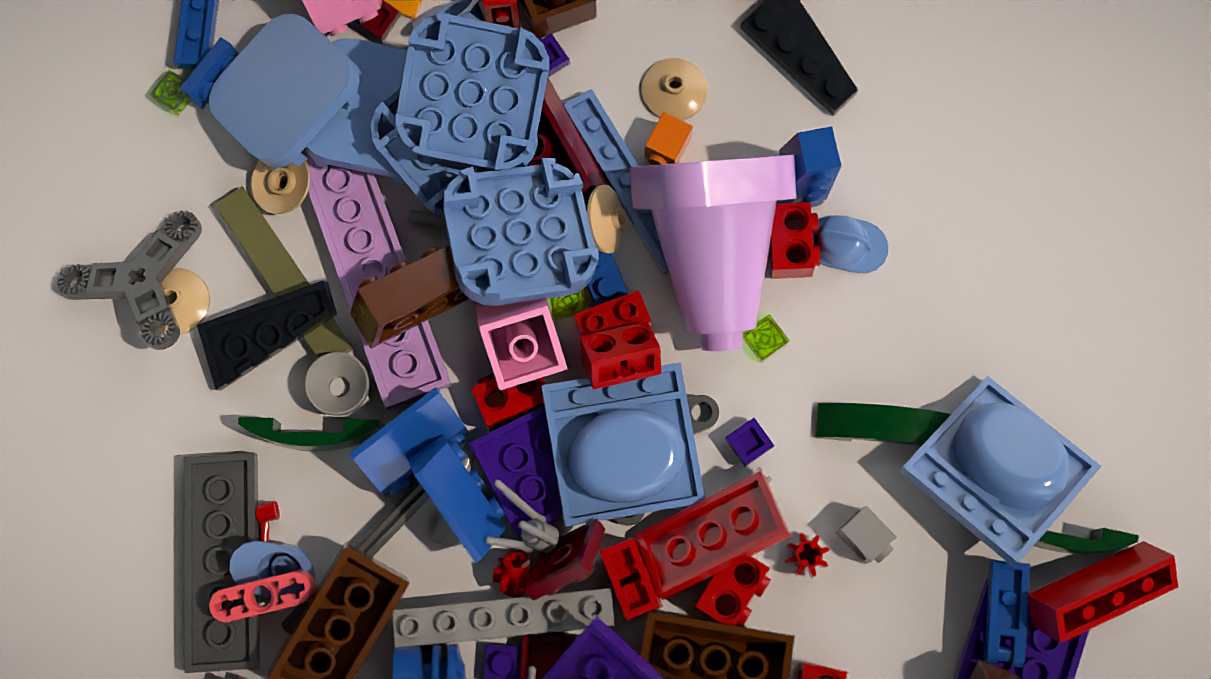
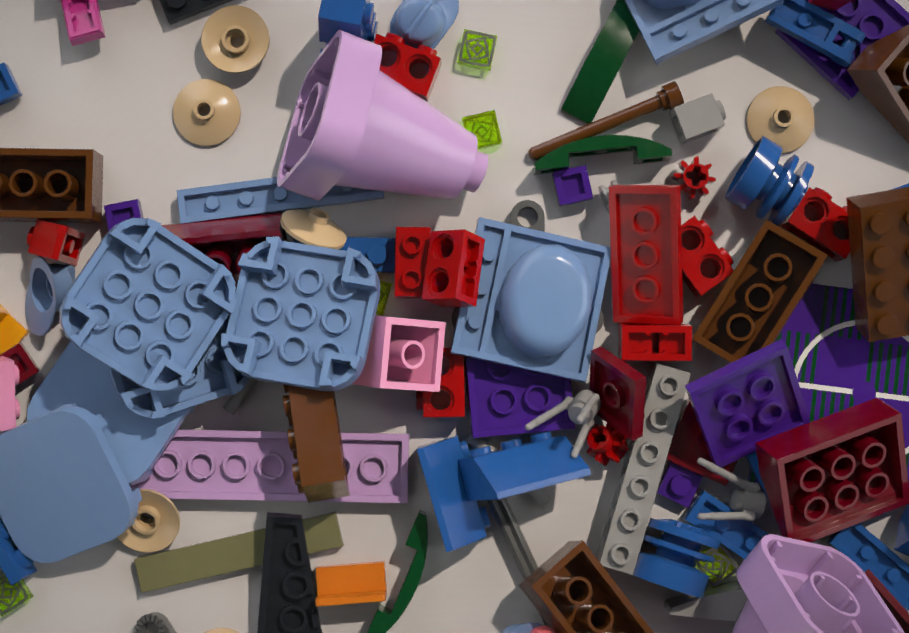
camera: 70 degrees left, 10 degrees up
(287, 385) = (351, 583): none -> orange panel
(325, 371) = (367, 558): light grey piece -> none
(668, 141) = (260, 140): orange brick -> none
(753, 71) = (232, 23): none -> tan dish
(768, 418) = (643, 151): none -> dark green slope
(834, 628) = (769, 182): none -> blue wheel
(839, 303) = (477, 50): none -> tile
(872, 497) = (666, 98): none -> reddish brown piece
(885, 624) = (763, 117): none -> tan dish

